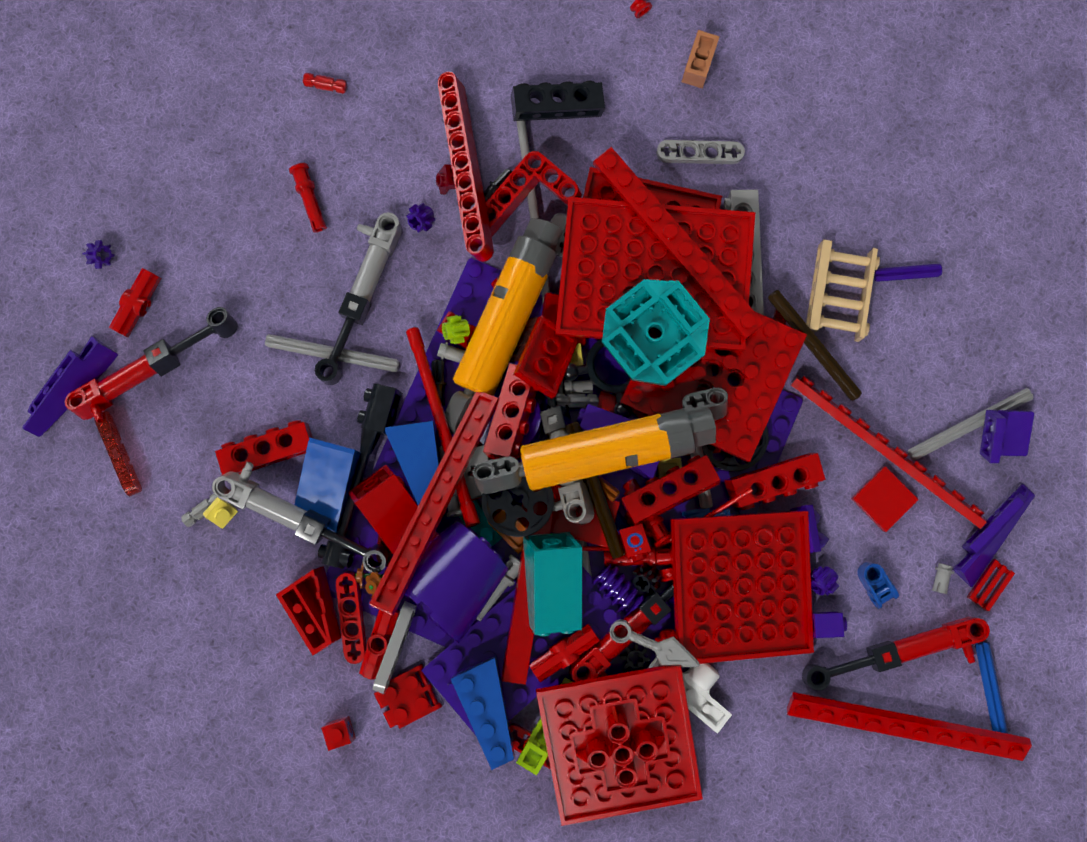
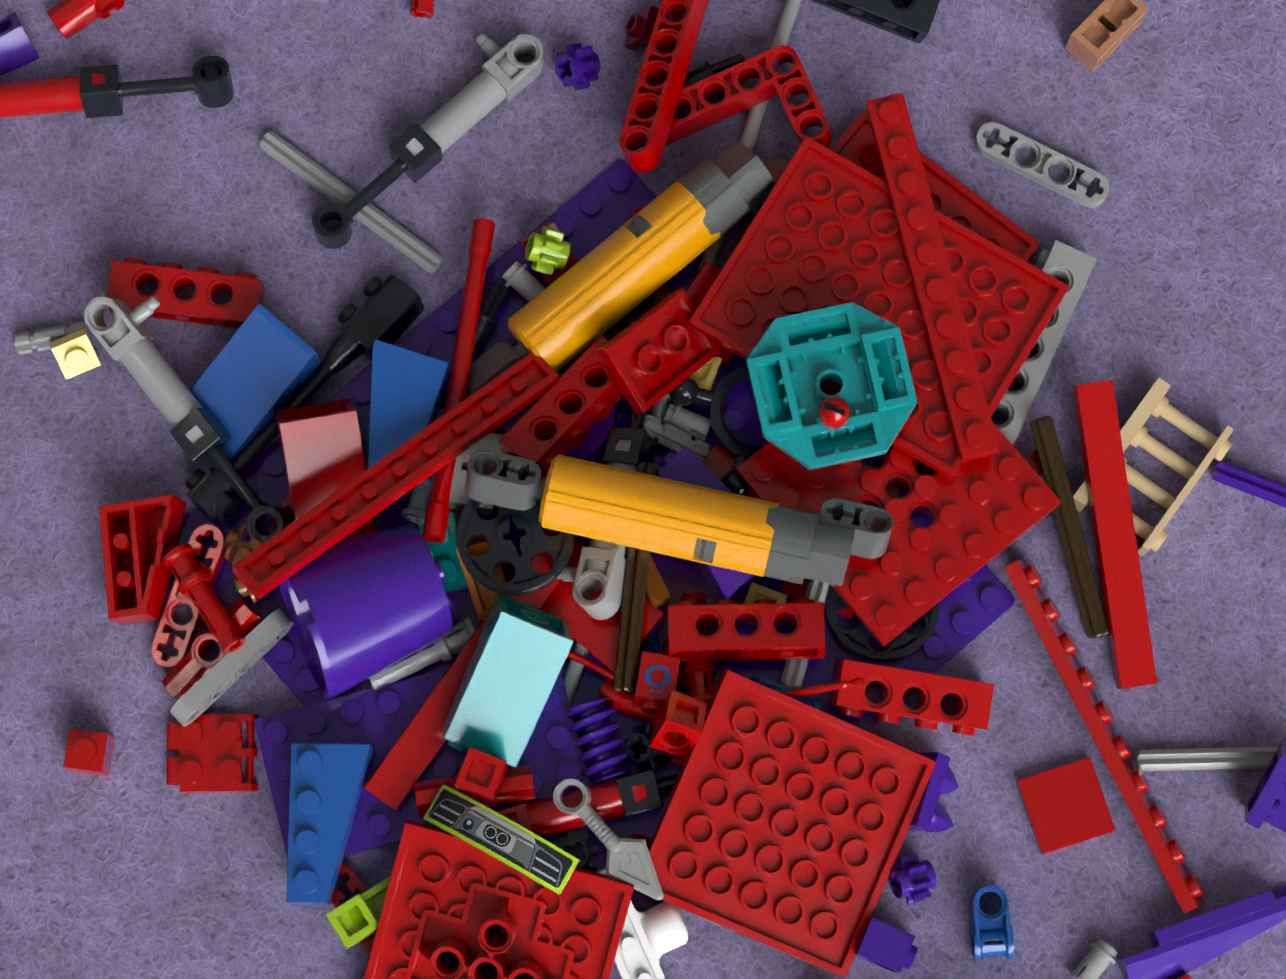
camera: 20 degrees right, 5 degrees down
(351, 612) = (196, 585): none -> red pin
(566, 647) = (481, 775): none -> red brick
(594, 677) = (501, 839): none -> slope
(660, 562) = (678, 724): none -> red brick
(668, 351) = (830, 418): none -> red hinge
(841, 337) = (1114, 534): none -> red tile

